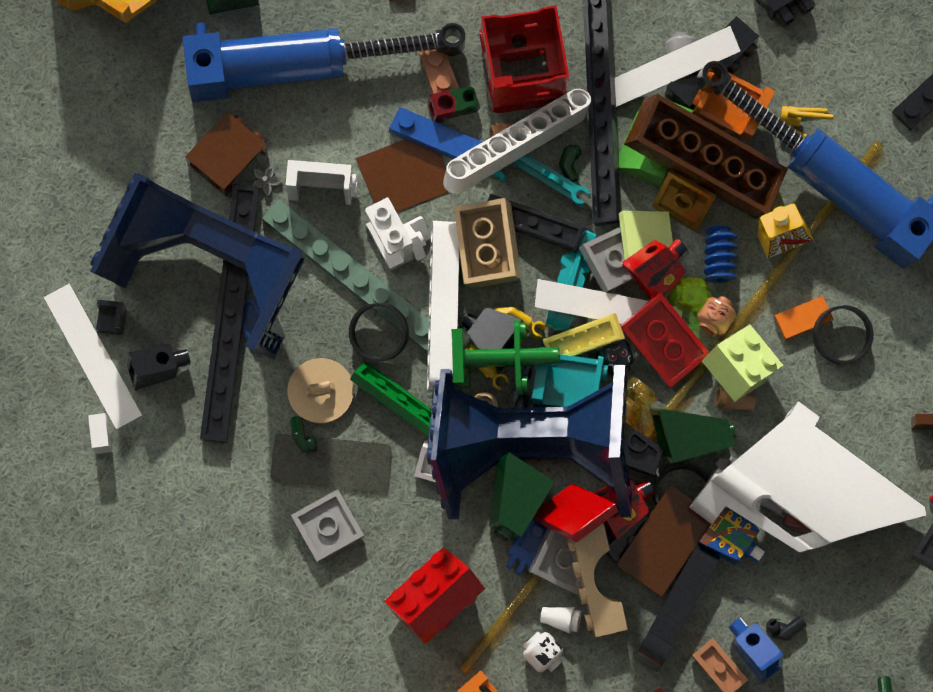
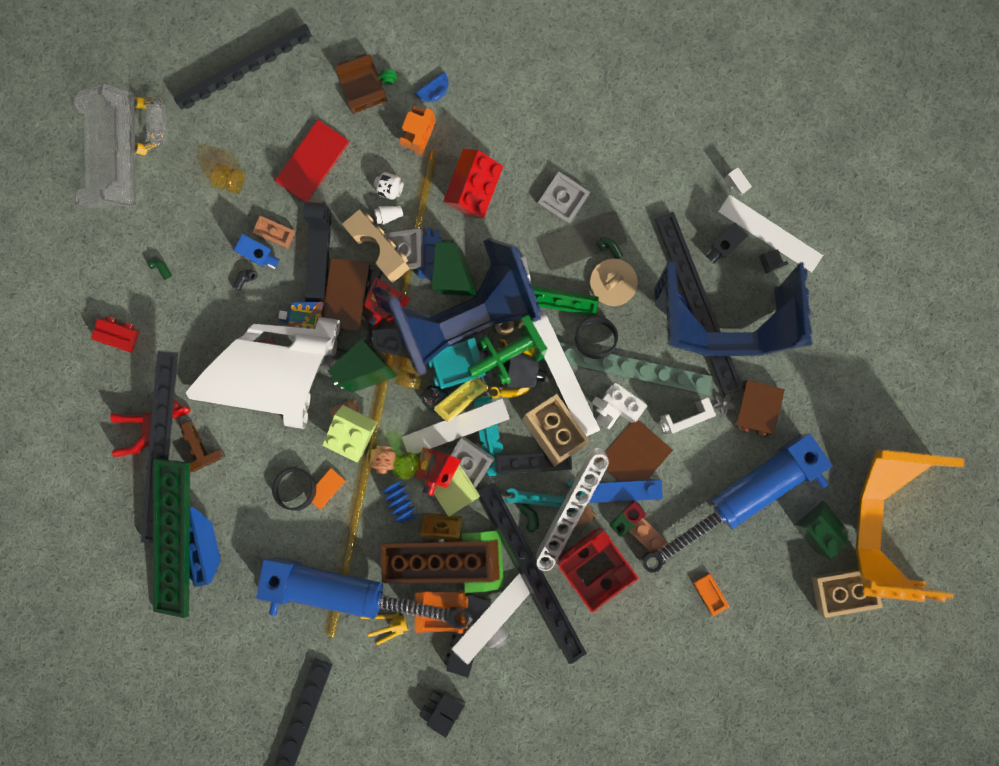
camera: 155 degrees right, 10 degrees up
(575, 512) = (408, 275): red tile -> none
(664, 340) = (408, 424): red plate -> none
(782, 230) = (365, 539): yellow torso -> none

